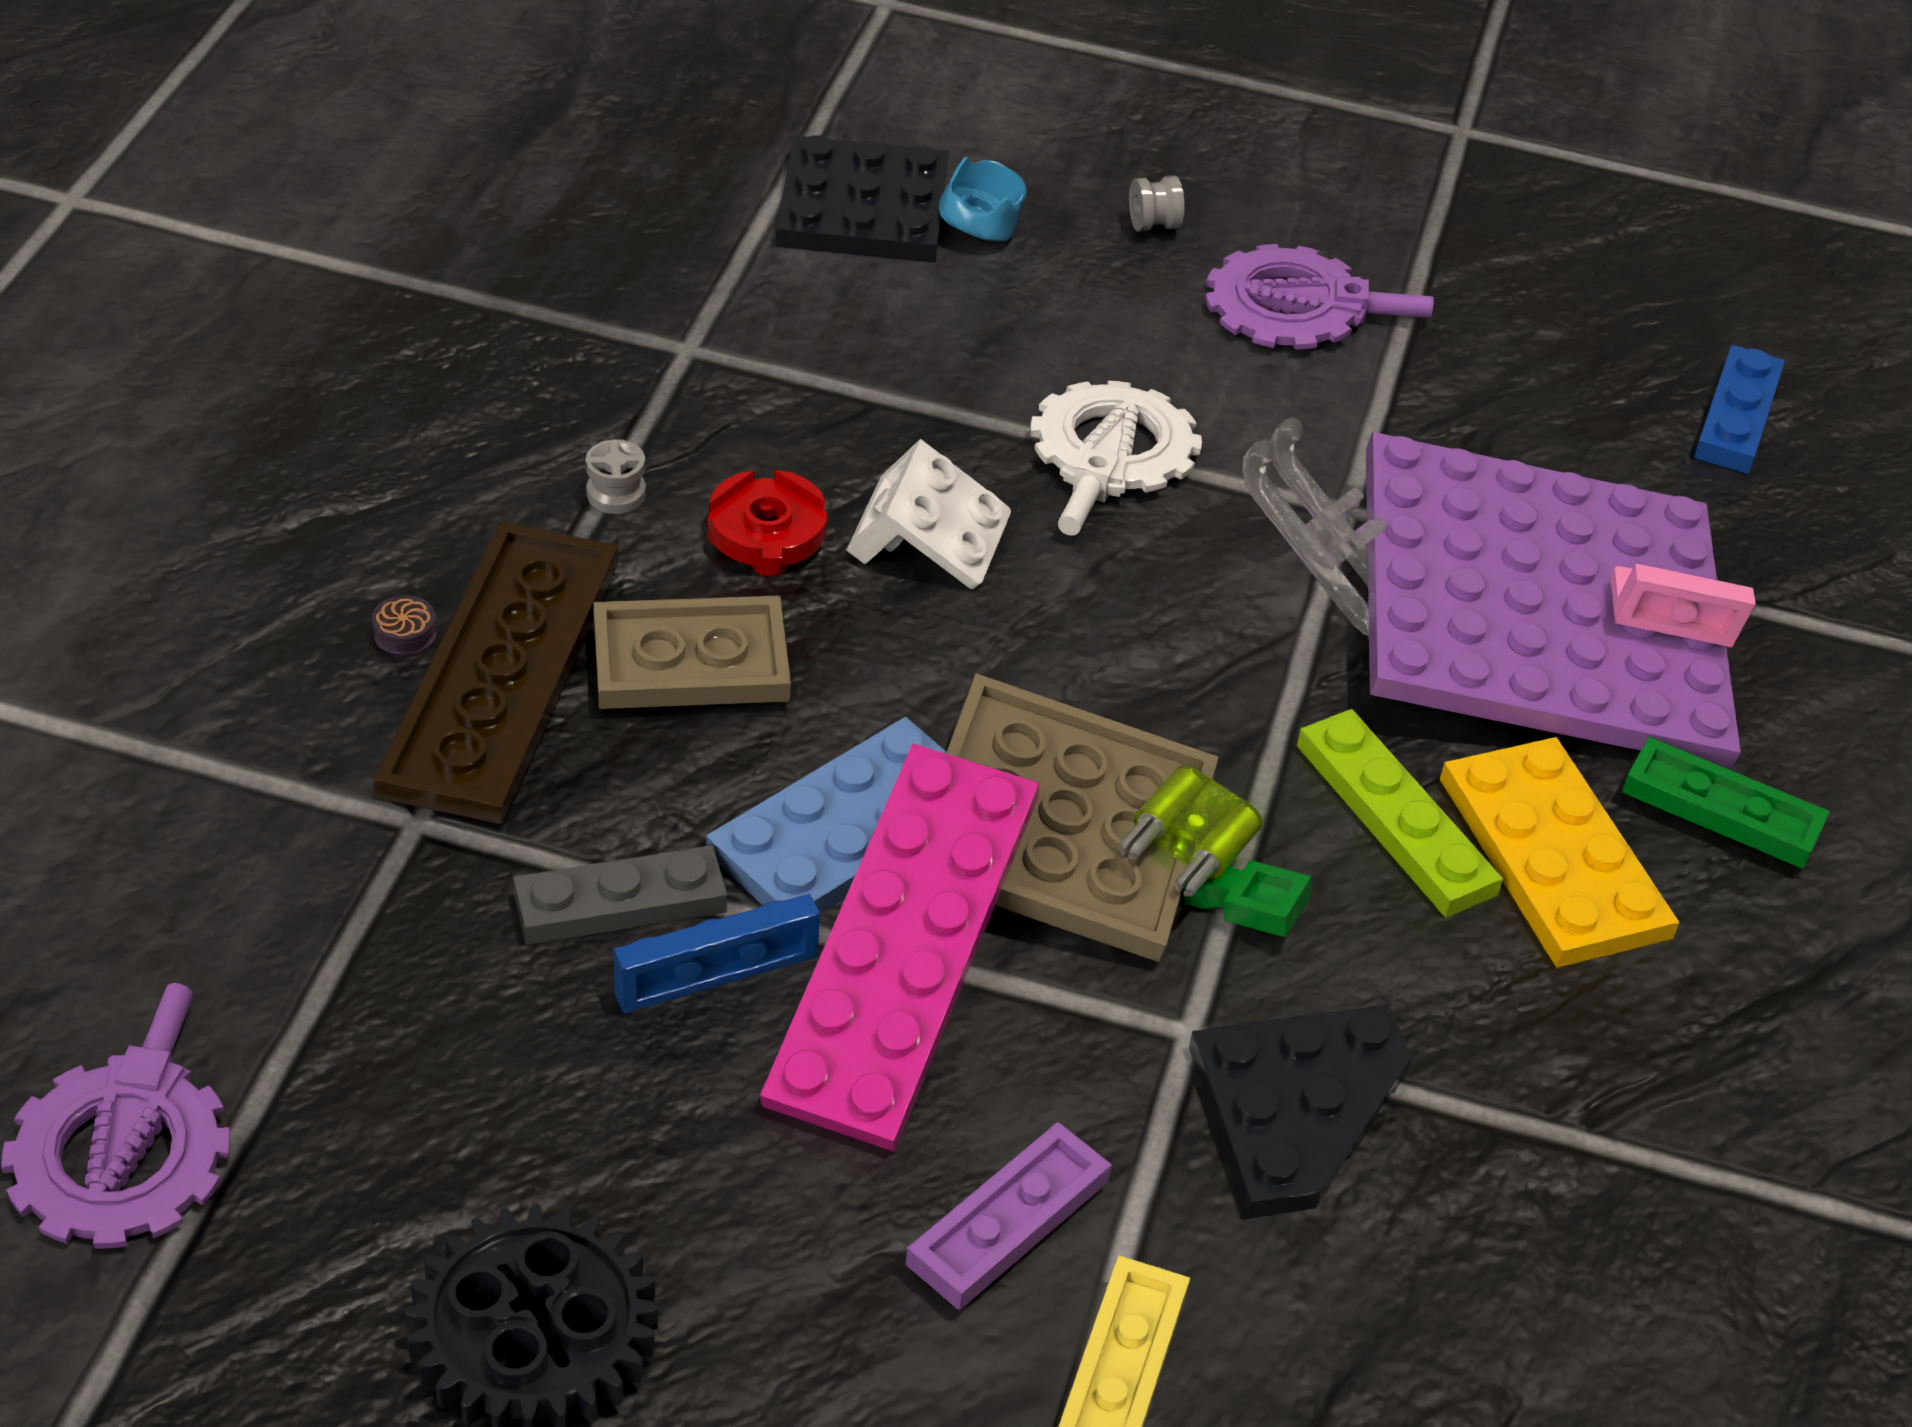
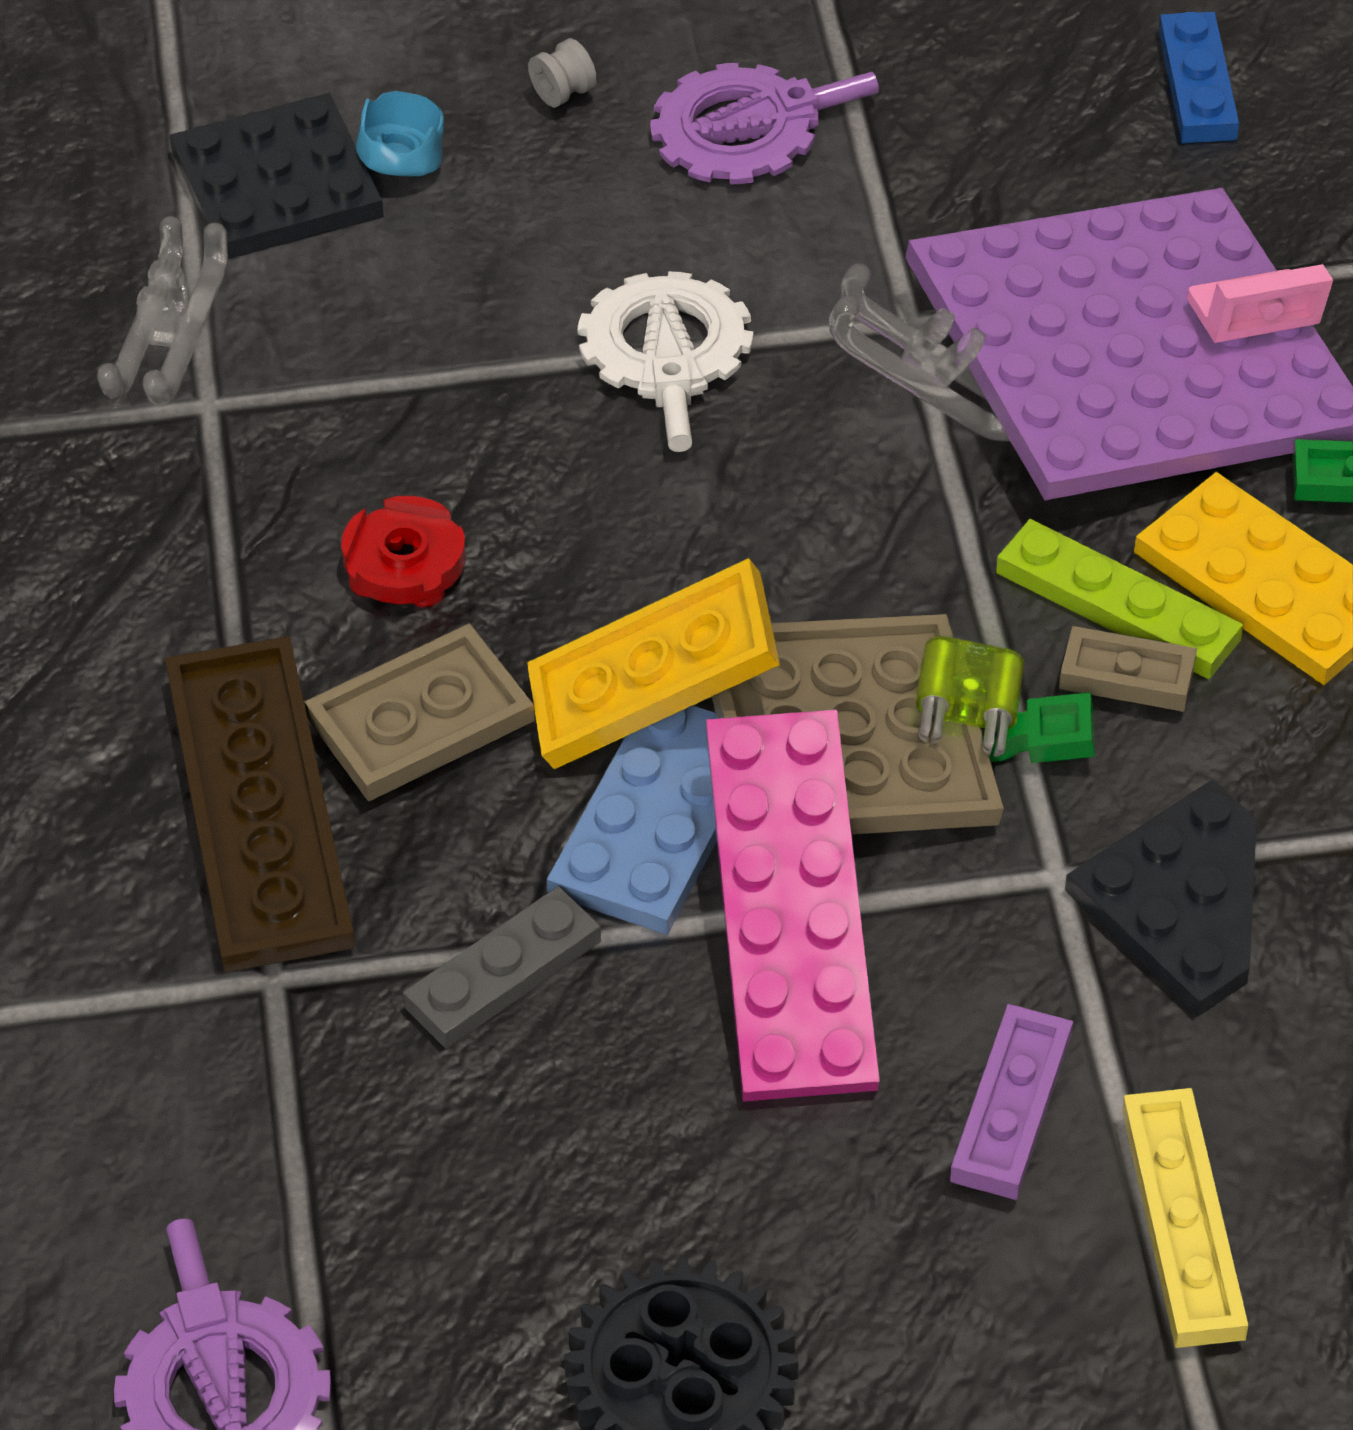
camera: 20 degrees left, 5 degrees up
(404, 624) = (135, 796): tile -> none
(615, 476) = (236, 566): light grey wheel -> none
(694, 265) = (167, 315): none -> clear piece
(716, 952) = (626, 982): blue plate -> none
(910, 686) = (652, 663): none -> yellow plate
(936, 512) = (553, 476): white bracket -> none
(1366, 873) = (1128, 668): none -> dark tan plate

